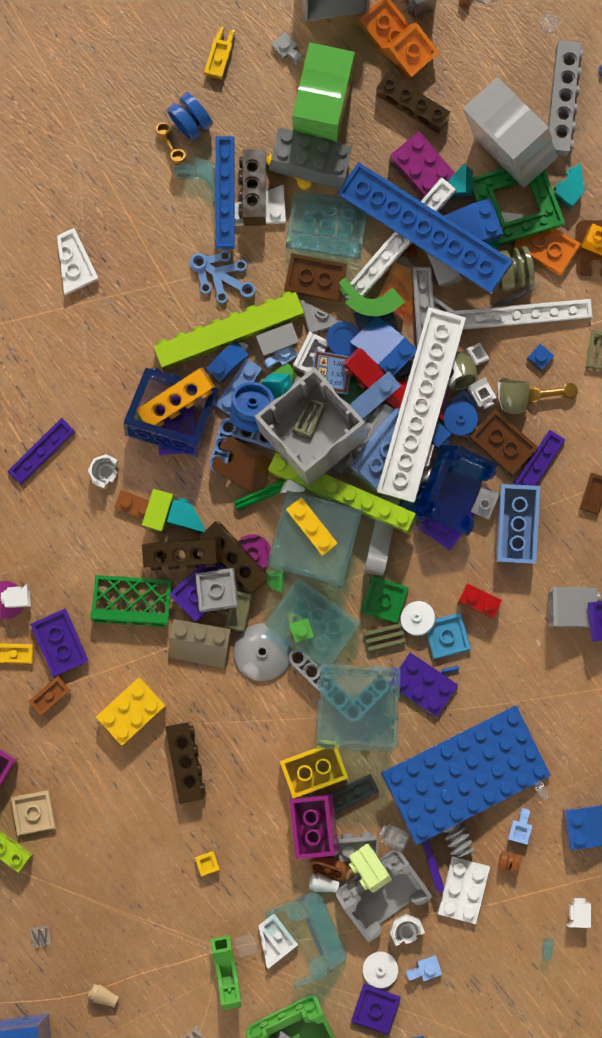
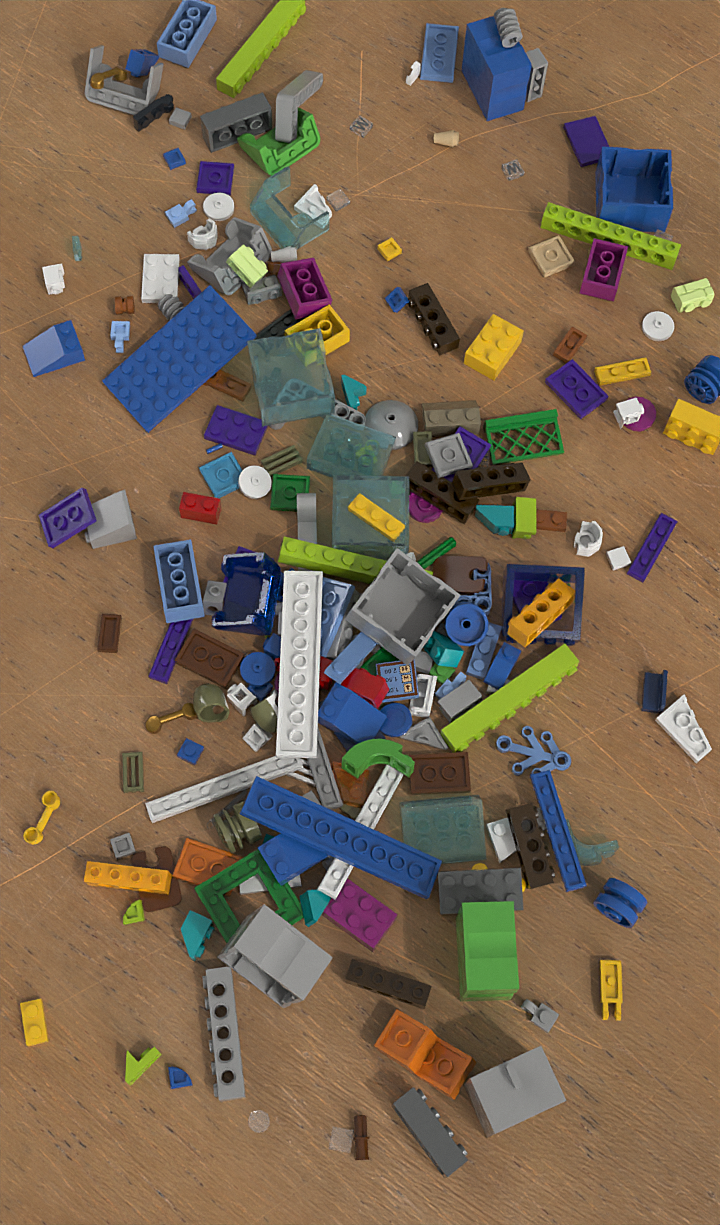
camera: 160 degrees right, 15 degrees down
(78, 447) = (618, 558): none -> white tile
(90, 304) = (654, 692): none -> dark blue panel
(164, 134) = (619, 857): pearl gold bar -> none
(216, 796) = (397, 299): none -> blue plate
(226, 972) = (349, 177): bright green arch -> none
(294, 700) = (352, 390): none -> teal slope
(301, 630) = (360, 437): bright green plate -> none
(317, 418) = (414, 624): olive tile -> none
(394, 837) = (233, 293): clear brick -> none
(416, 735) = (229, 385): none -> dark orange plate
(541, 790) = (107, 365): clear tile -> none

